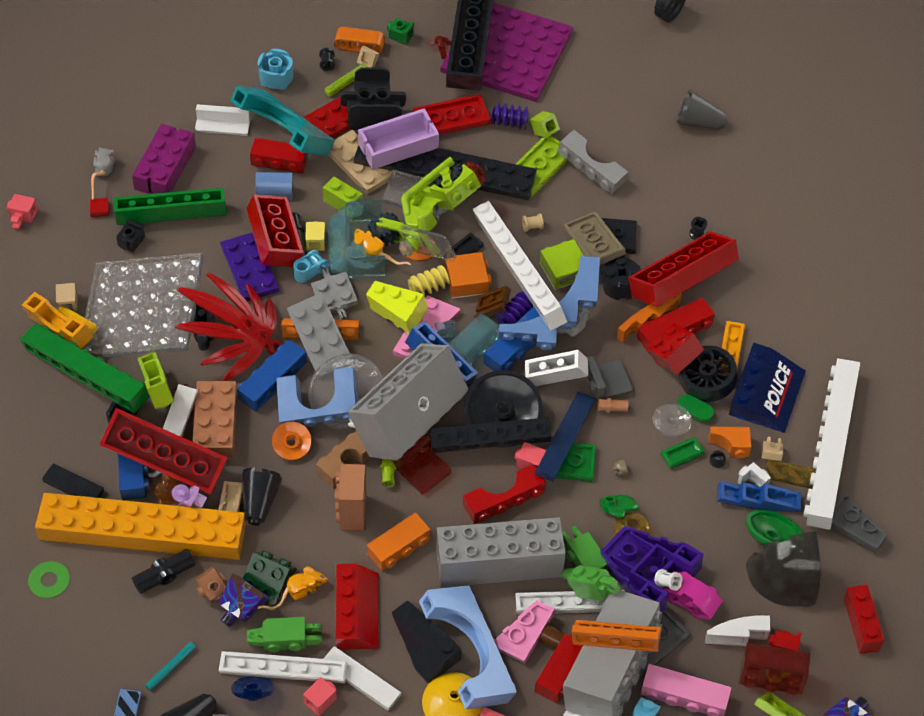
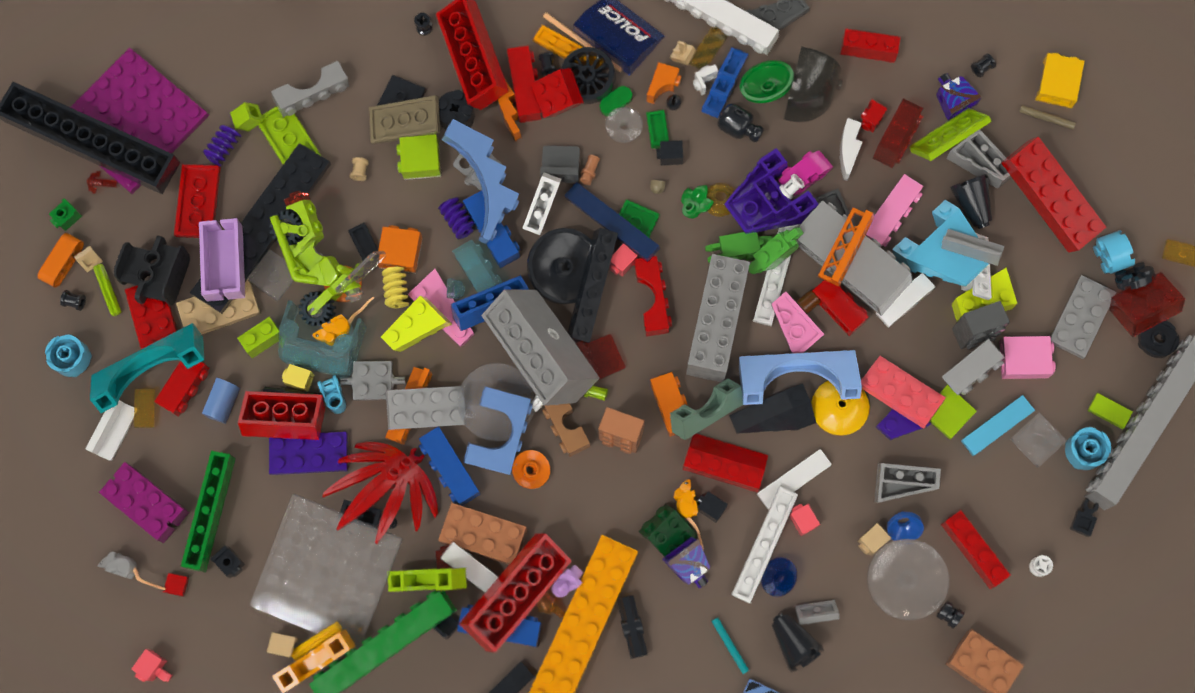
camera: 65 degrees left, 20 degrees up
(204, 581) = (663, 586): nougat brick -> none
(231, 496) = (575, 544): tan plate -> none
(245, 137) = (144, 408): none -> clear yellow tile
(259, 493) = (582, 516): black cone -> none
(284, 634) = (732, 535): bright green hinge -> none
(306, 606) = (711, 506): none -> black brick
(381, 551) = (724, 399): none -> sand green arch
(493, 302) = (443, 237): reddish brown plate -> none
(520, 266) = (420, 196): white brick -> none
(660, 469) = (670, 153): none -> black brick
(710, 336) = (547, 63): none -> black bush
(718, 518) = (738, 123): none -> black piece
(748, 349) = (573, 35): none -> light nougat axle

